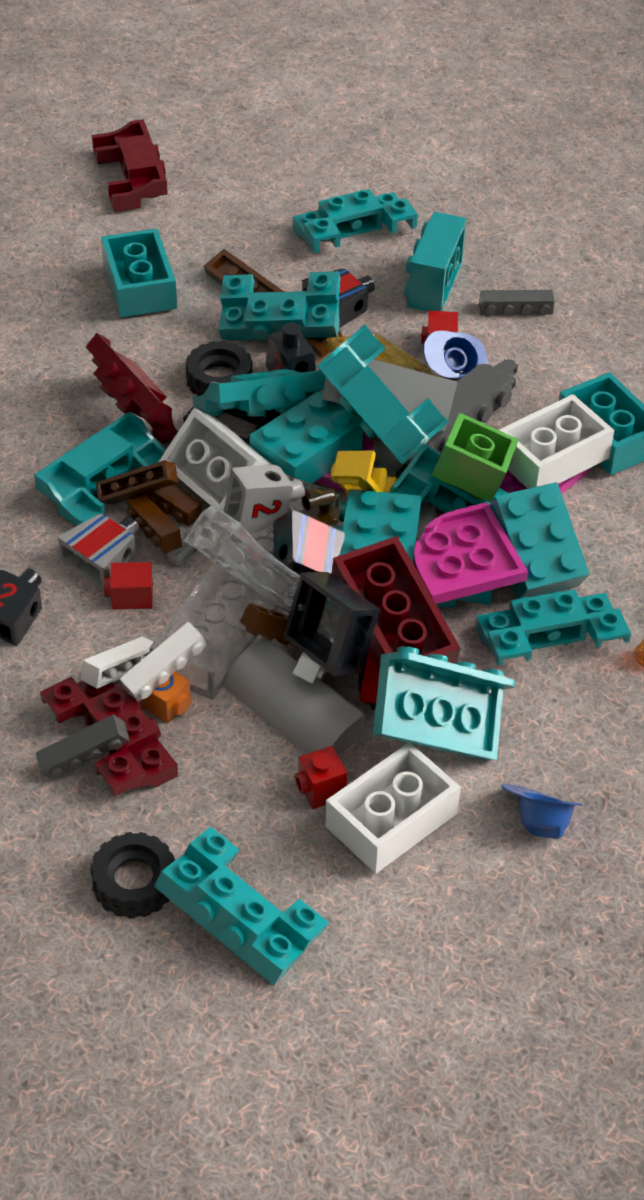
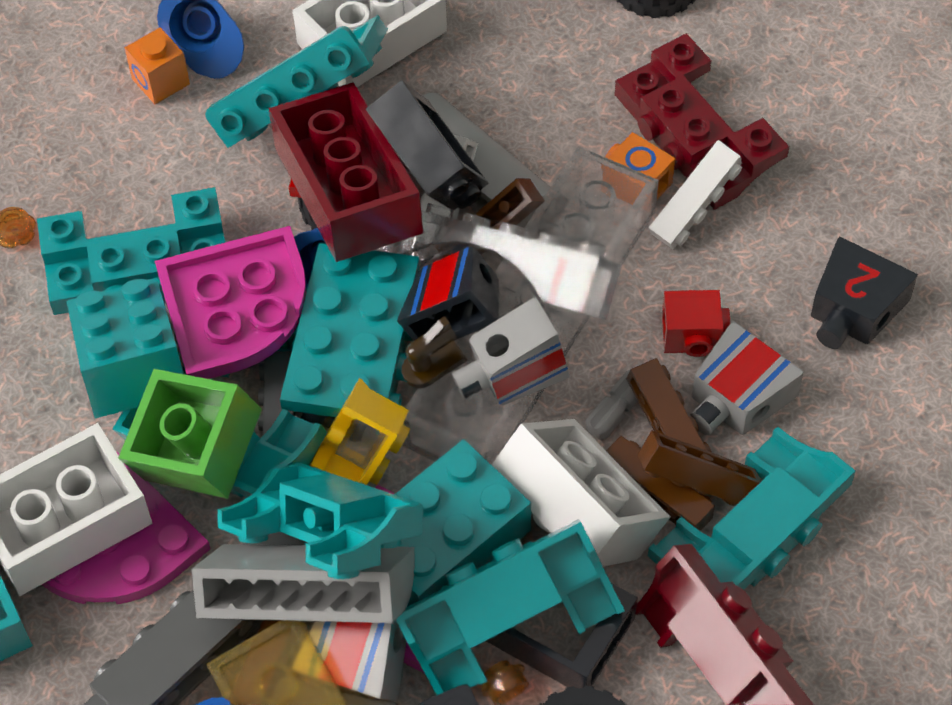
camera: 175 degrees left, 10 degrees up
(82, 747) = (727, 83): dark grey piece -> none
(163, 662) = (638, 149): white piece -> none
(320, 776) = (448, 61): red brick -> none
(572, 771) = (157, 65): none -> orange brick

